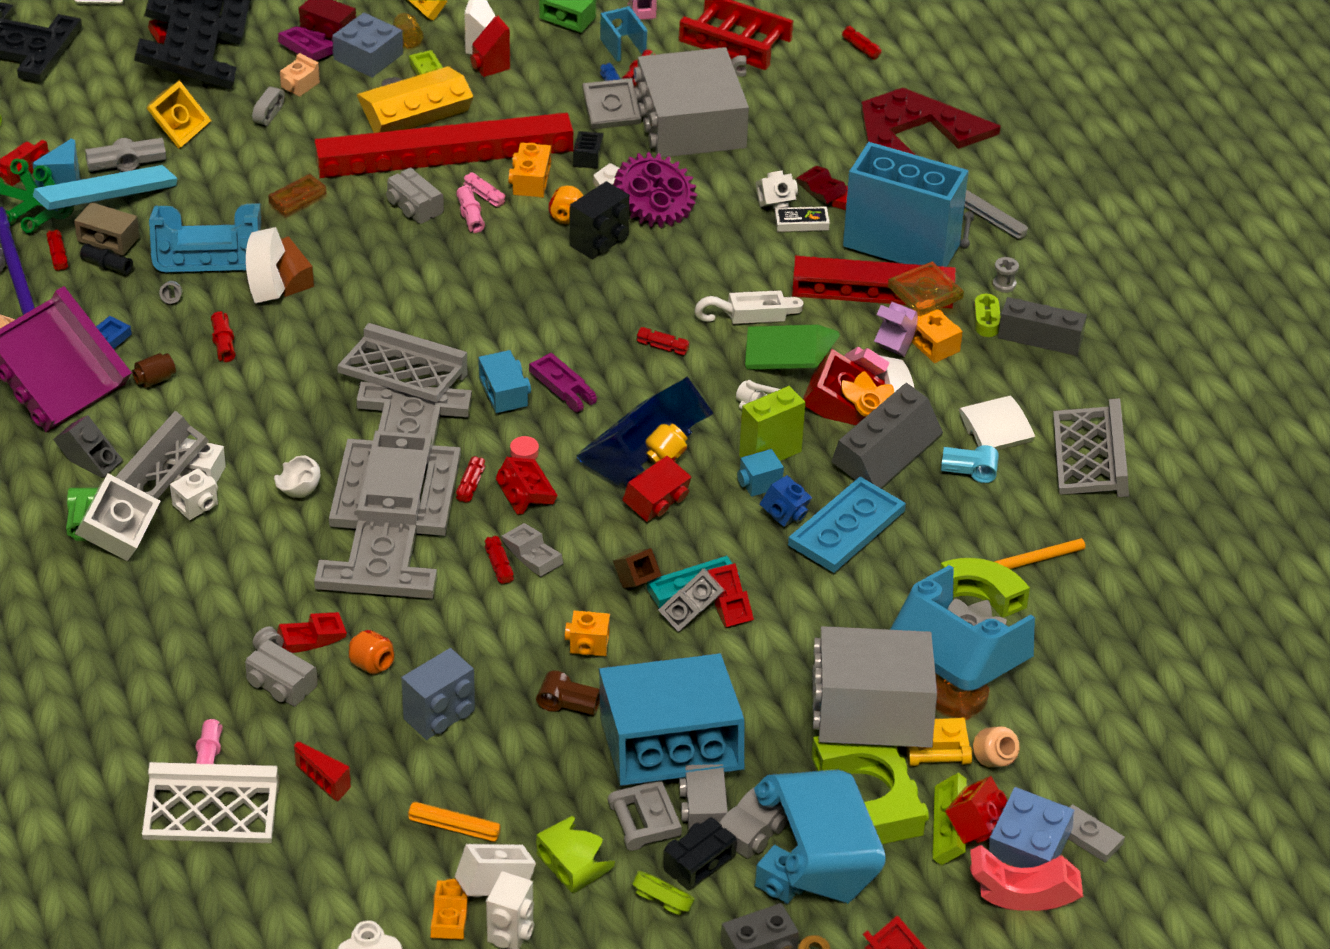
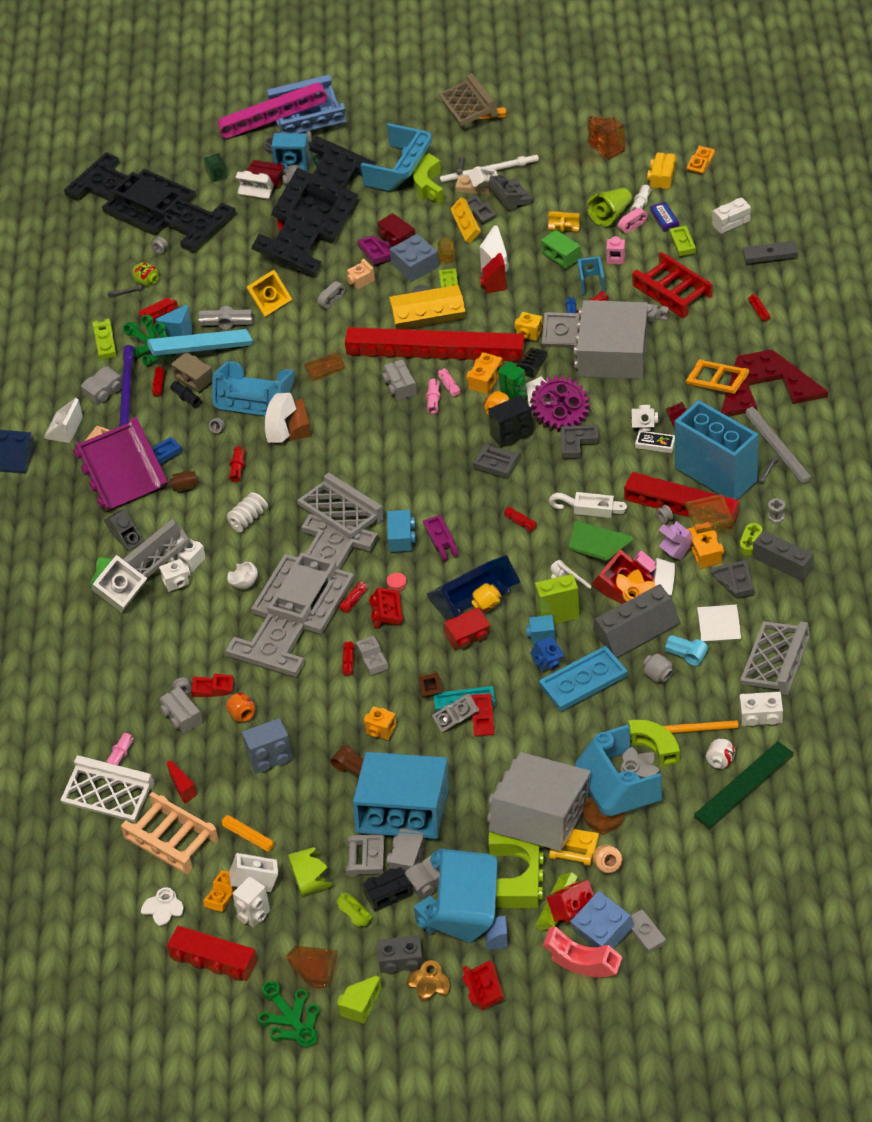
camera: 25 degrees right, 5 degrees up
(266, 394) = (246, 511): none -> white piece
(331, 869) = (166, 850): none -> light nougat fence
(567, 100) = (529, 325): none -> yellow brick
(580, 168) = (512, 380): none -> green brick
(596, 275) = (496, 460): none -> dark grey plate
(692, 229) = (574, 436): none -> dark grey plate
(847, 139) = (691, 380): none -> light orange window
(859, 302) = (664, 514): none -> light grey bush
(890, 882) = (497, 934): none -> medium blue brick
(944, 491) = (657, 668): none -> light grey head
(991, 364) = (735, 578): none -> dark grey wing
(1079, 581) = (720, 752): none -> white head
(1106, 517) = (761, 709): none -> white brick
(1128, 619) = (743, 785): none -> dark green tile

